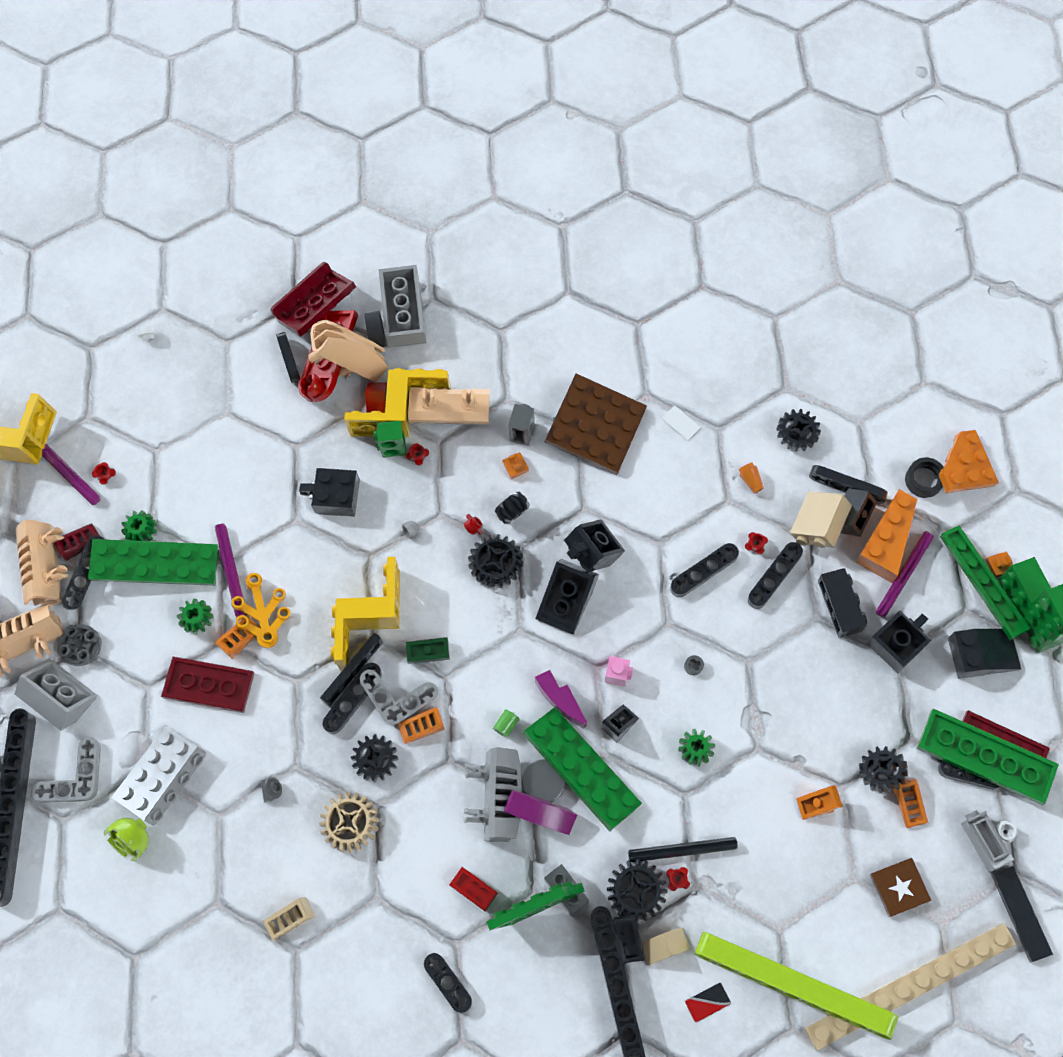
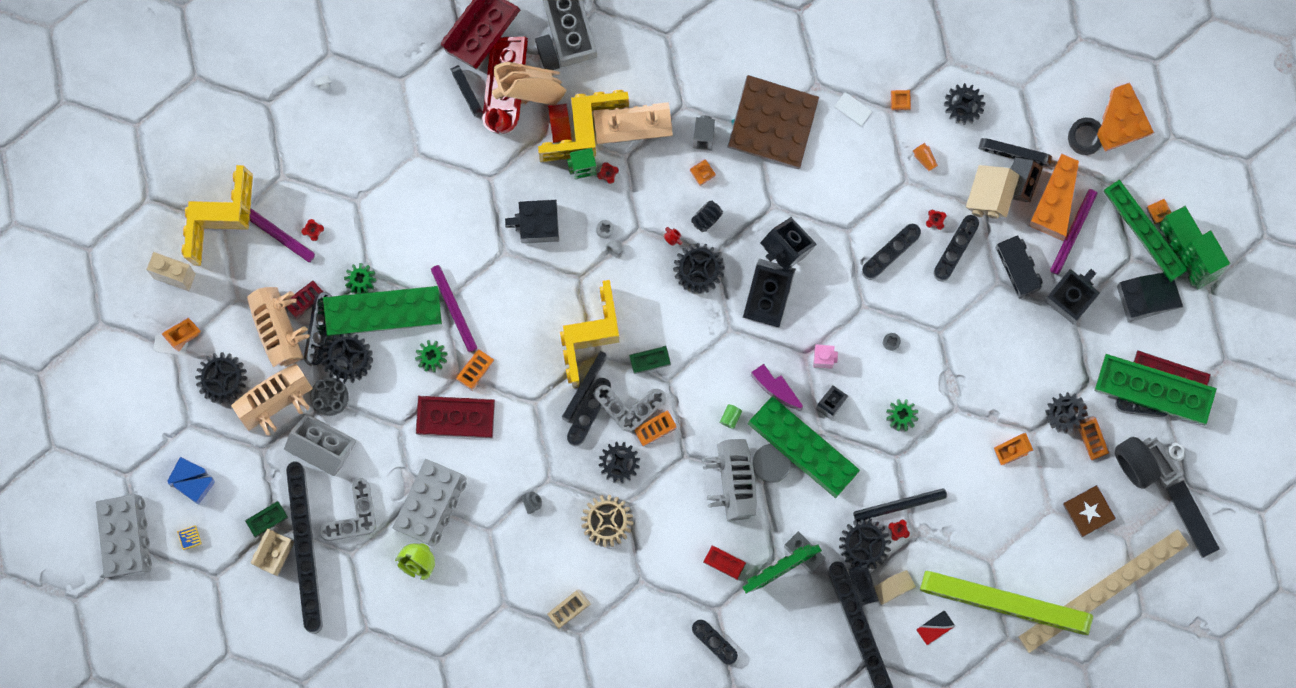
camera: 10 degrees left, 10 degrees up
(94, 600) = (362, 352): none -> black gear
(261, 613) = (491, 345): light orange plant -> none
(406, 504) = (604, 234): none -> light grey bush
(541, 812) = (774, 490): magenta slope -> none
(731, 419) = (900, 100): none -> orange tile
(963, 837) = (1137, 462): none -> black tyre

